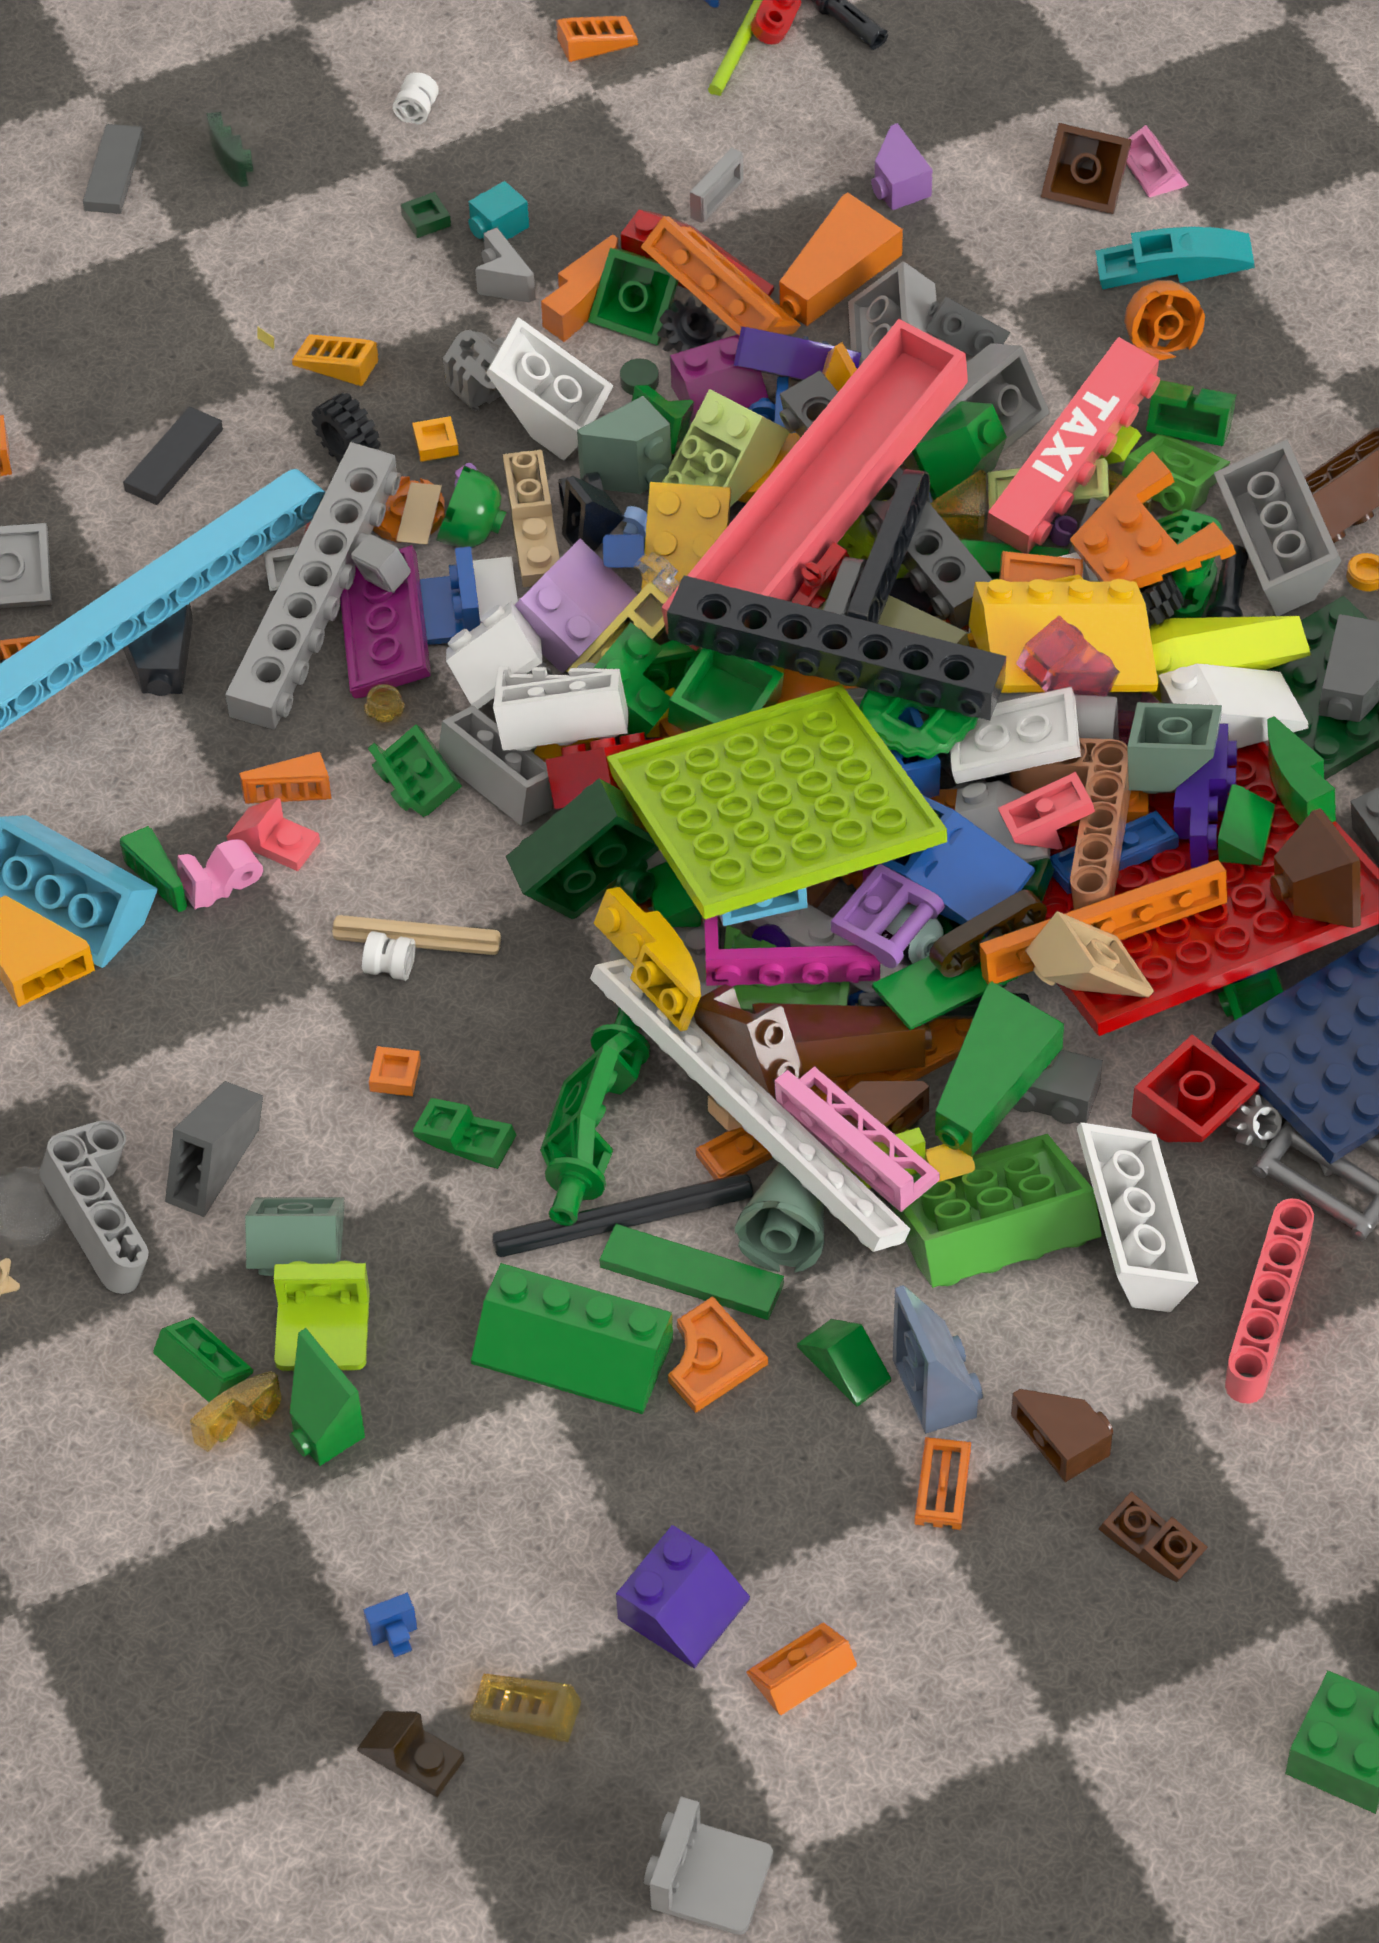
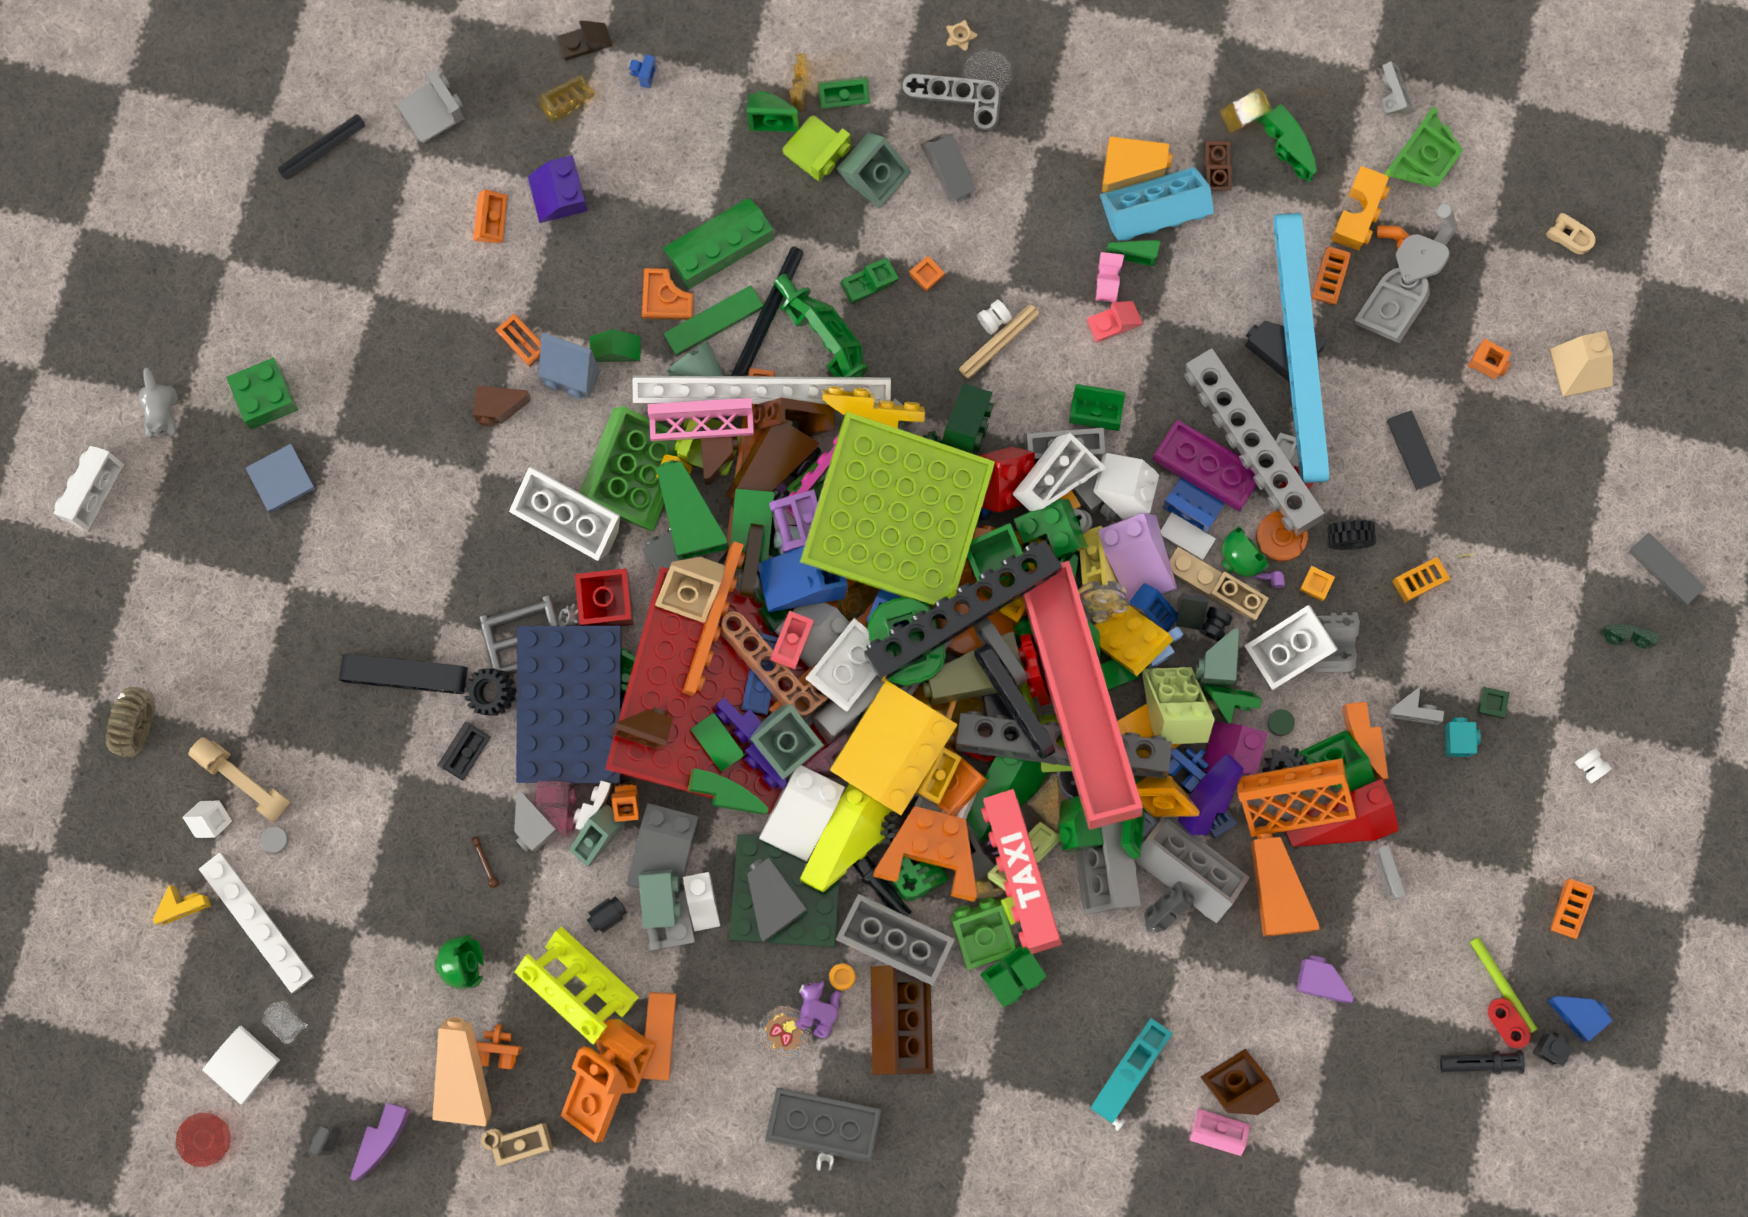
camera: 130 degrees right, 25 degrees up
(289, 780) = (1135, 354): orange slope -> none
(381, 563) = (1233, 474): light grey slope -> none
(384, 695) = (1155, 423): clear yellow plate -> none
(419, 513) = (1269, 536): tan sticker -> none
(1064, 658) = (867, 719): clear pink slope -> none
(1147, 1536) = (421, 402): reddish brown slope -> none
(1164, 312) = (1093, 1021): orange cylinder -> none
(1265, 1317) = (478, 534): coral beam -> none

